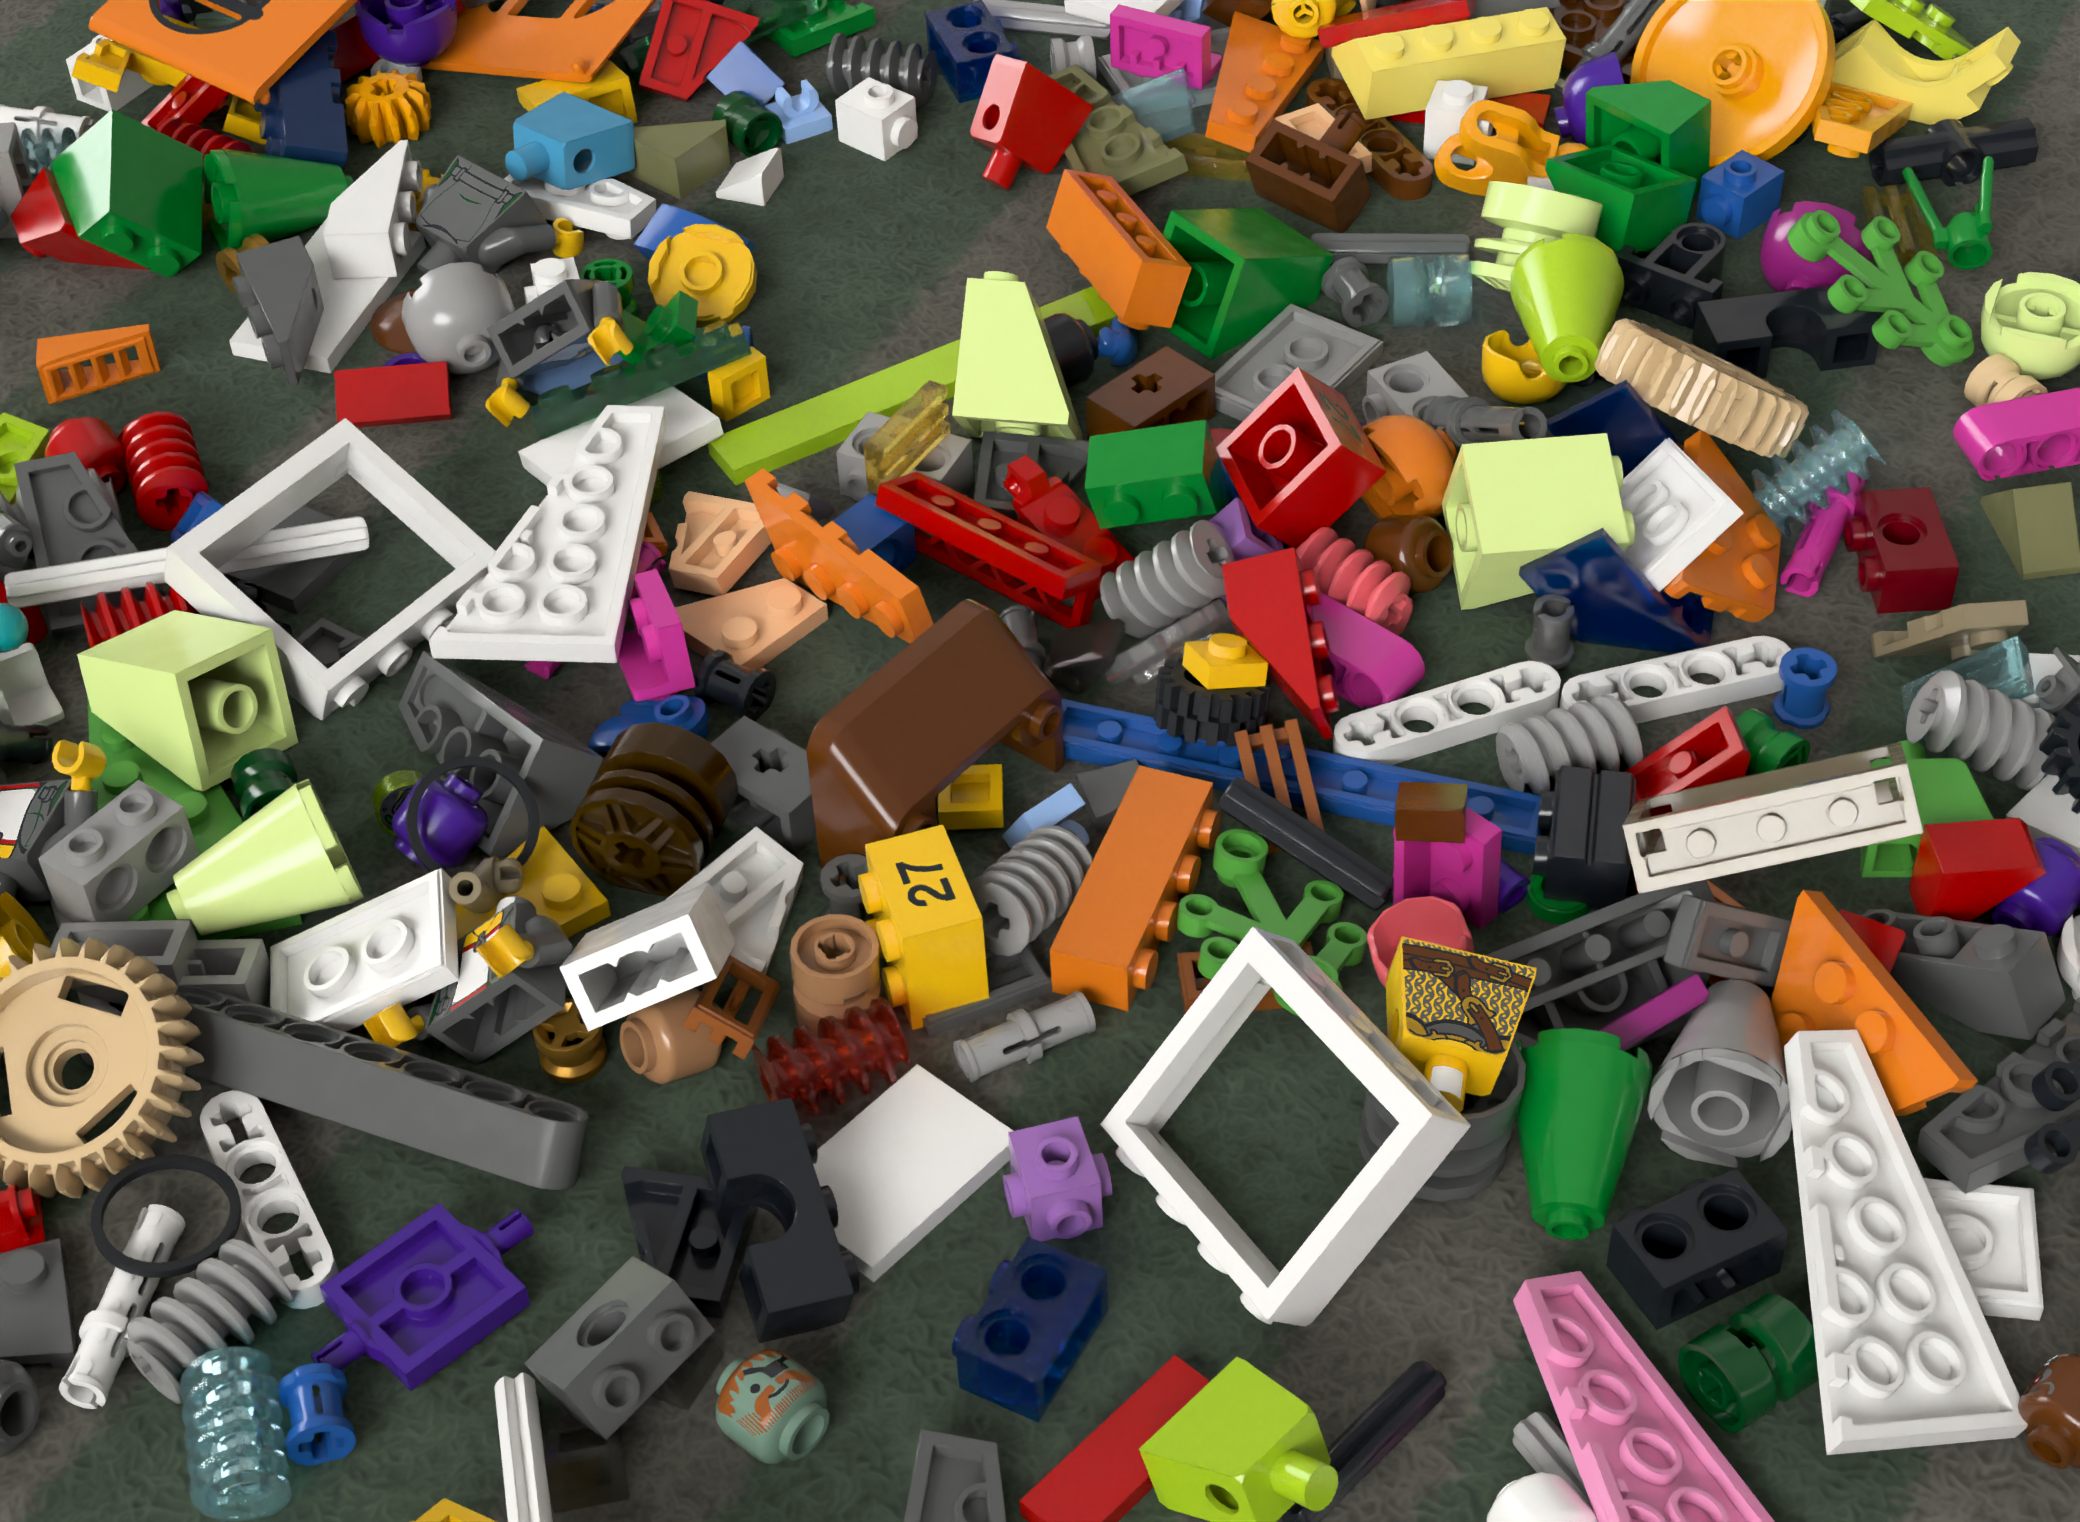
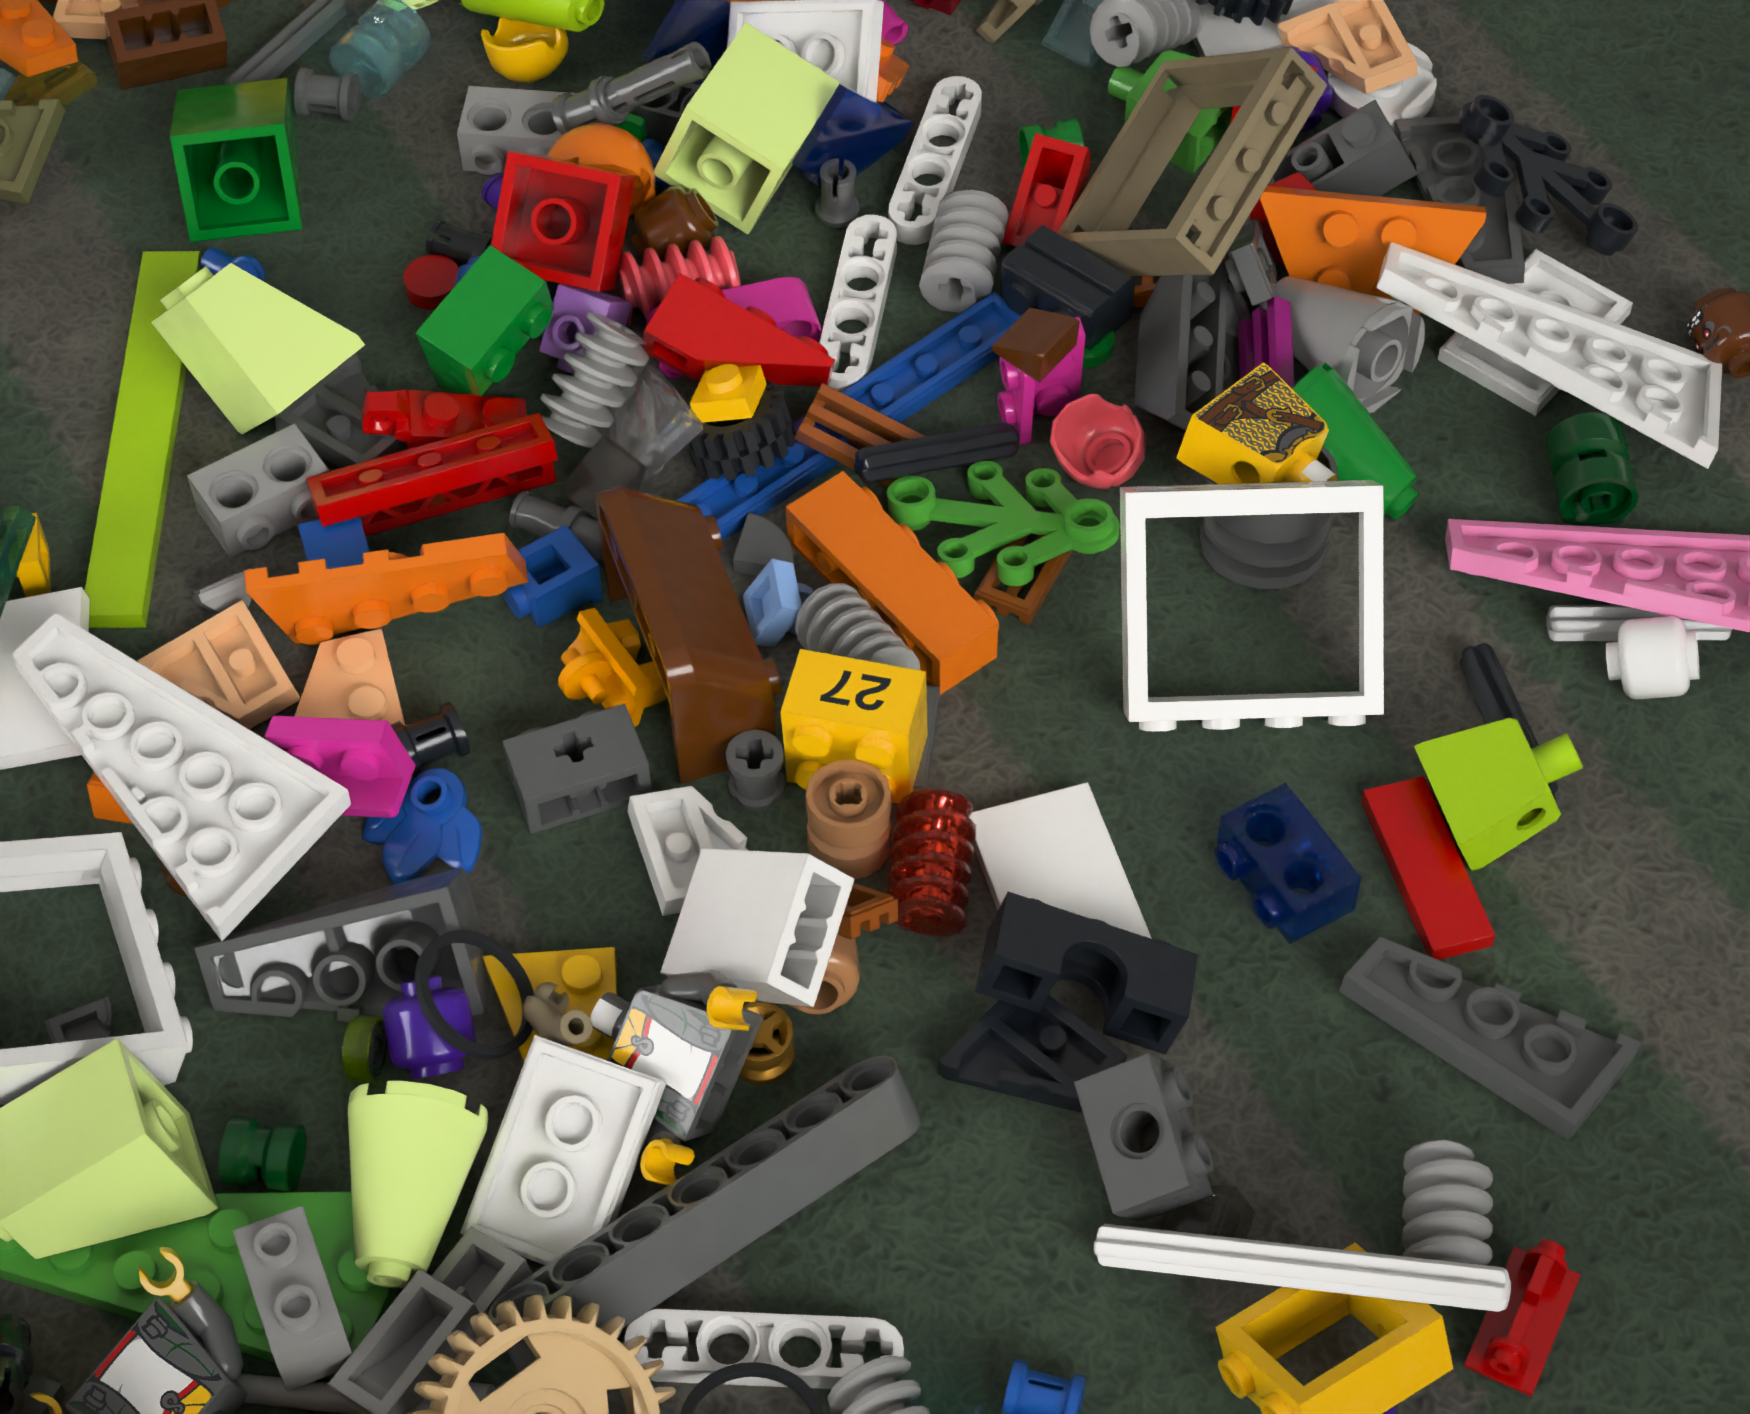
camera: 60 degrees left, 10 degrees up
(425, 1295) = (967, 1268): dark purple plate -> none
(654, 808) = (565, 854): dark brown wheel -> none
(771, 1406) = (1246, 1068): sand green head -> none
(907, 436) = (276, 459): clear yellow tile -> none
(1024, 1036) = (985, 731): light grey pin -> none
(1056, 1180) = (1165, 777): medium lavender brick -> none
(1118, 249) = (138, 205): orange brick -> none
(1152, 394) = (344, 283): reddish brown brick -> none
(1290, 341) = (372, 187): light grey tile -> none
(1696, 1247) = (1472, 445): black brick -> none
(1805, 680) = (999, 80): blue bush -> none

